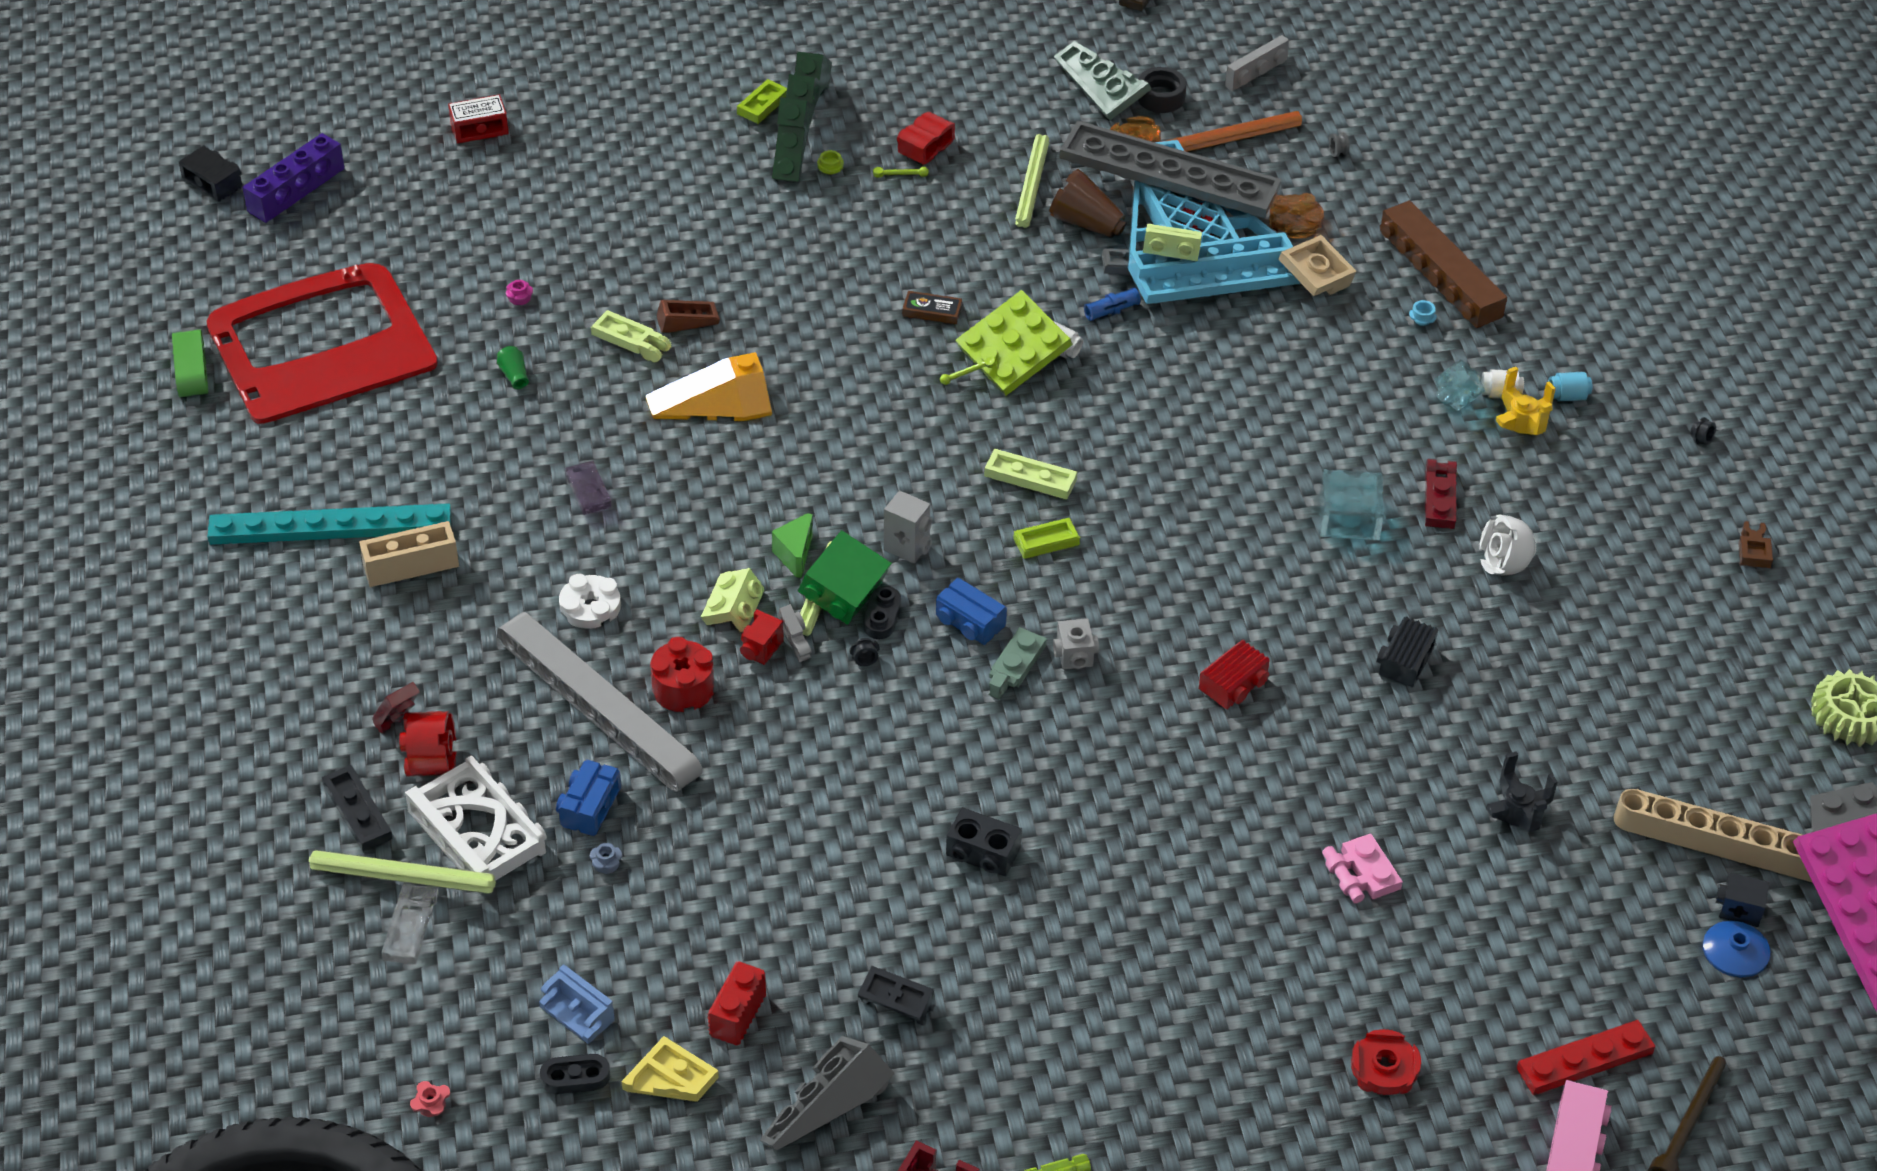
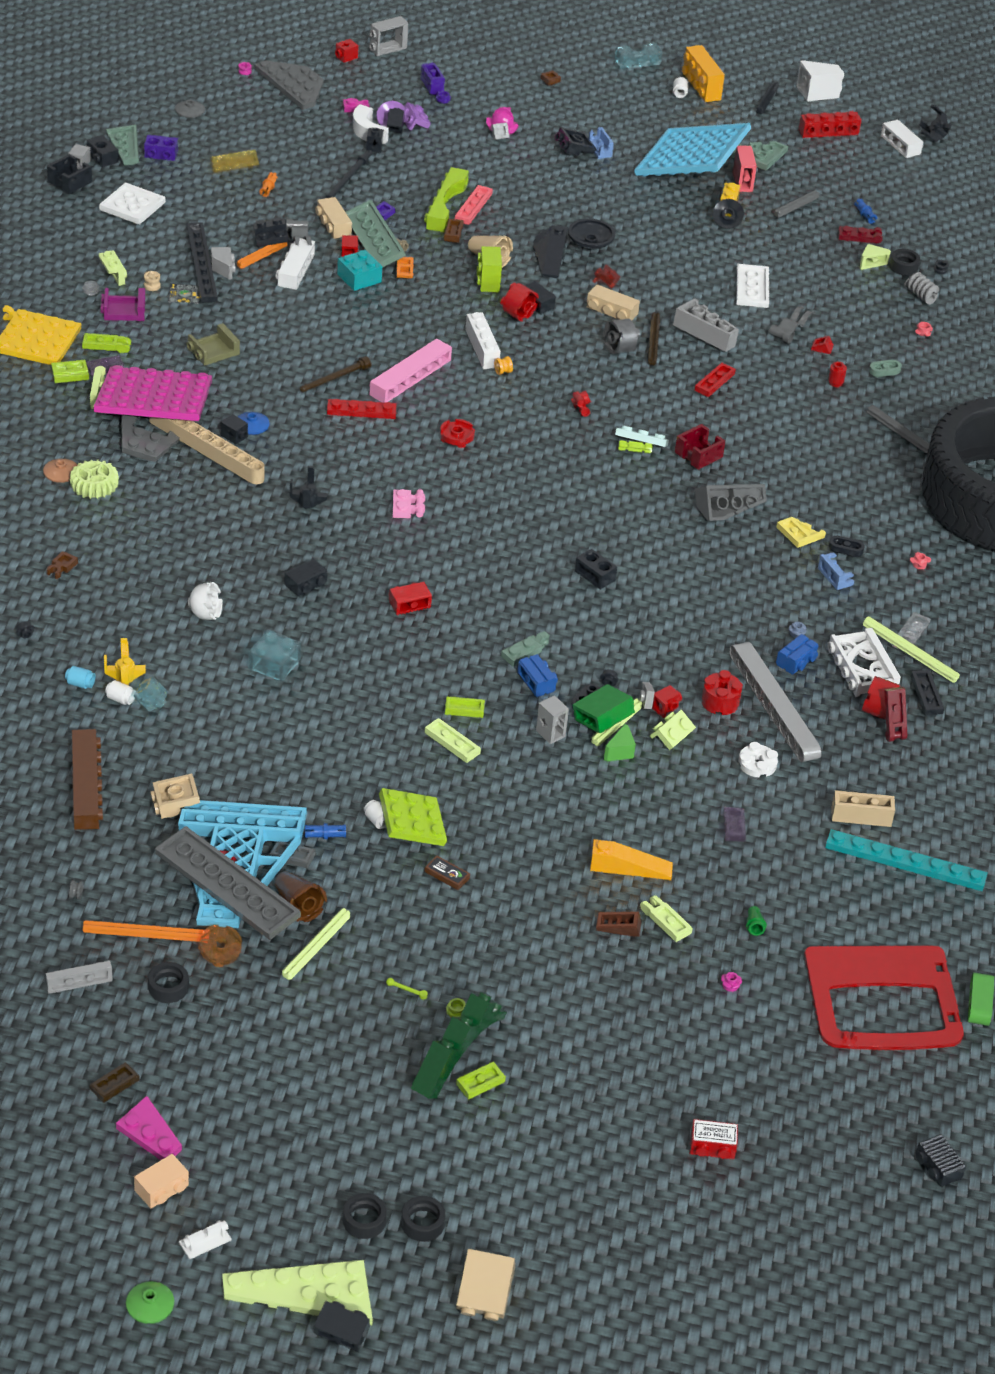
camera: 160 degrees left, 5 degrees down
(293, 177) = (875, 1129): dark purple brick -> none
(737, 1003) = (756, 543): red brick -> none
(897, 994) = (675, 522): black hinge -> none
(926, 137) = (375, 1000): red brick -> none
(989, 362) = (437, 807): lime hinge -> none
(1075, 650) = (489, 635): light grey brick -> none
(1101, 80) = (211, 1001): wing -> none
(1172, 242) = (271, 817): yellowish green bracket -> none
(1286, 207) = (139, 849): clear orange plate -> none
(1423, 312) = (126, 755): medium azure plate -> none
(1440, 494) = (212, 652): dark red plate -> none

